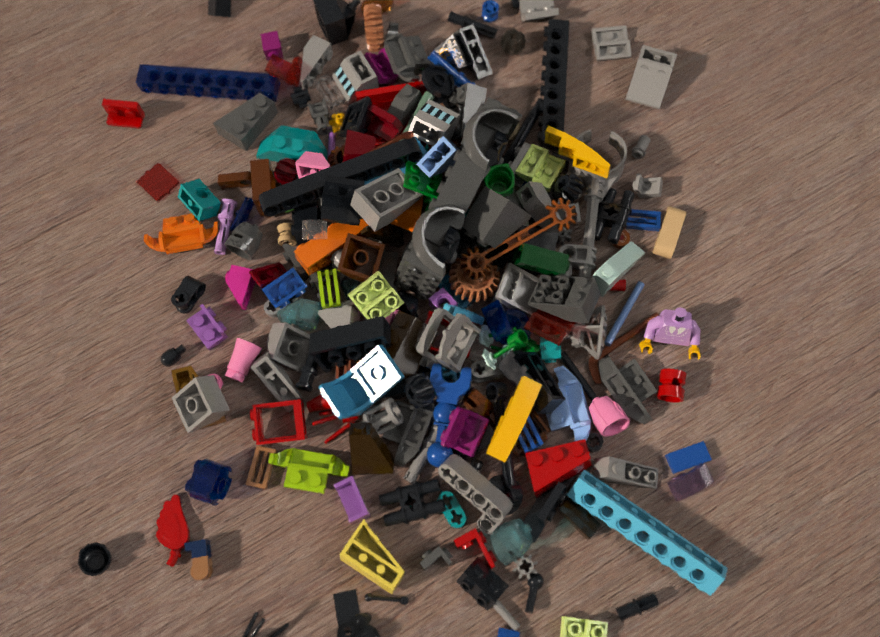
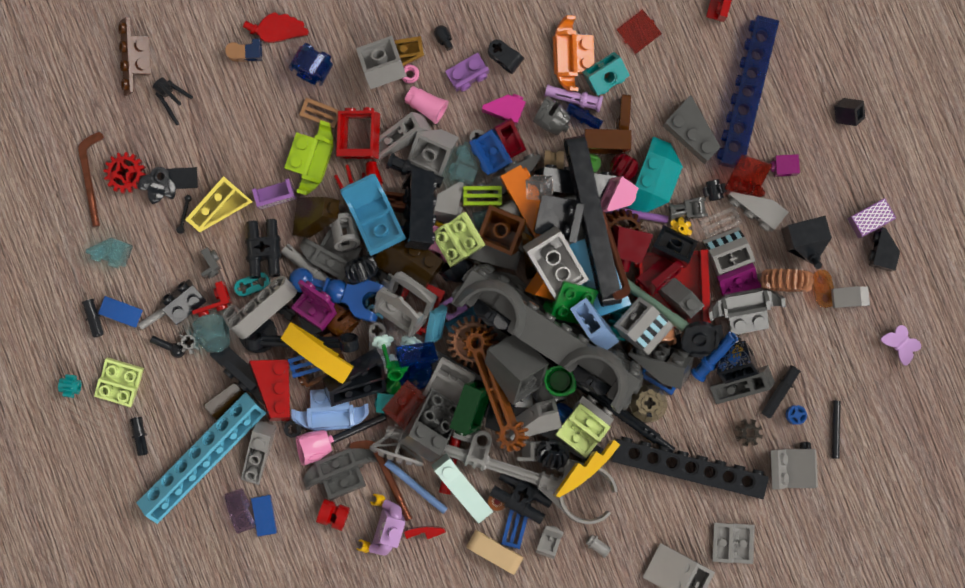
camera: 100 degrees right, 15 degrees up
(664, 291) = (430, 531): none -> red slope

